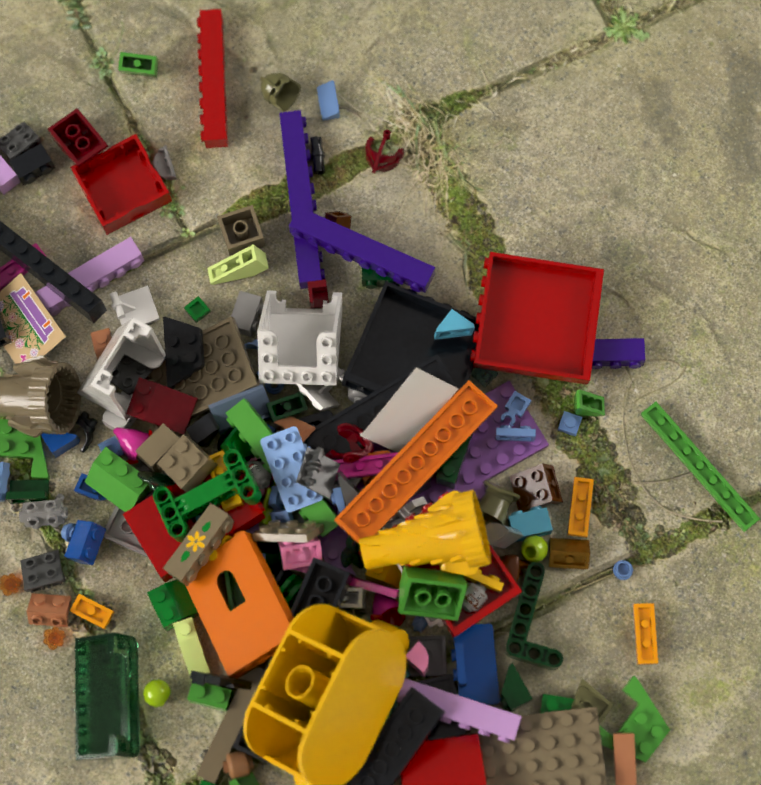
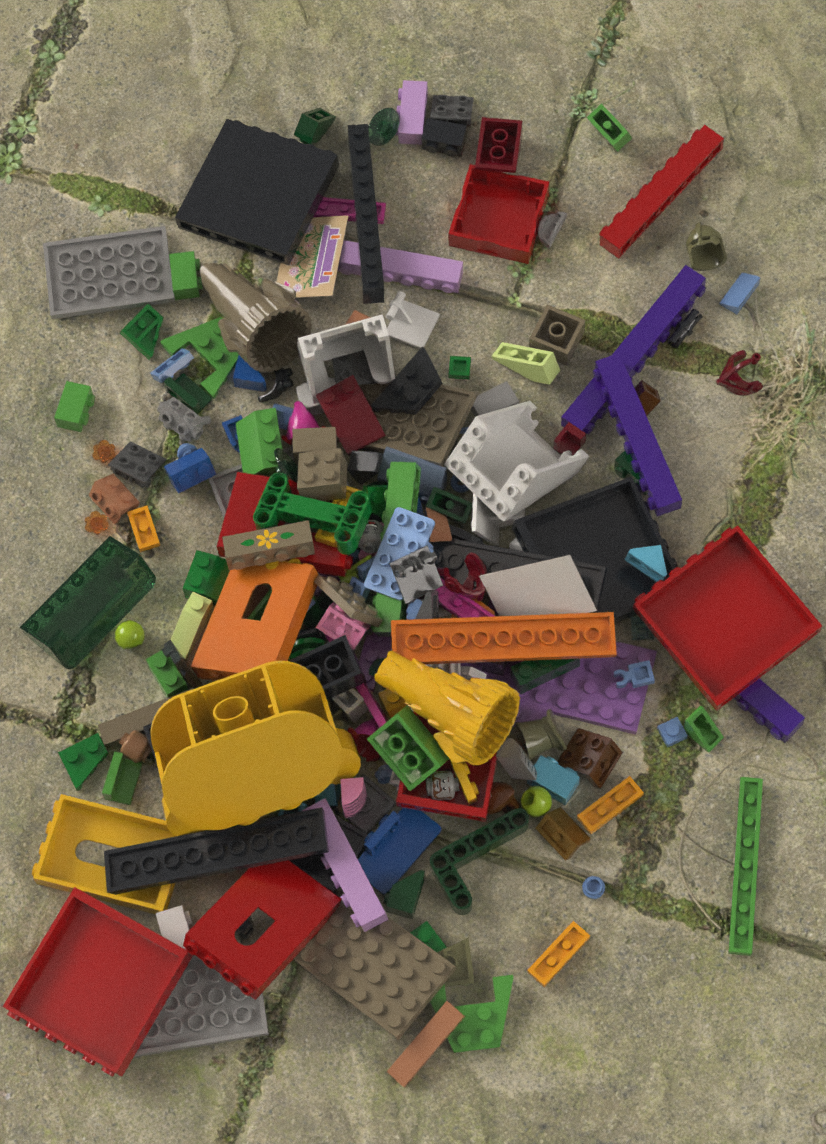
camera: 45 degrees right, 5 degrees down
(507, 433) = (607, 688): medium blue plate -> none

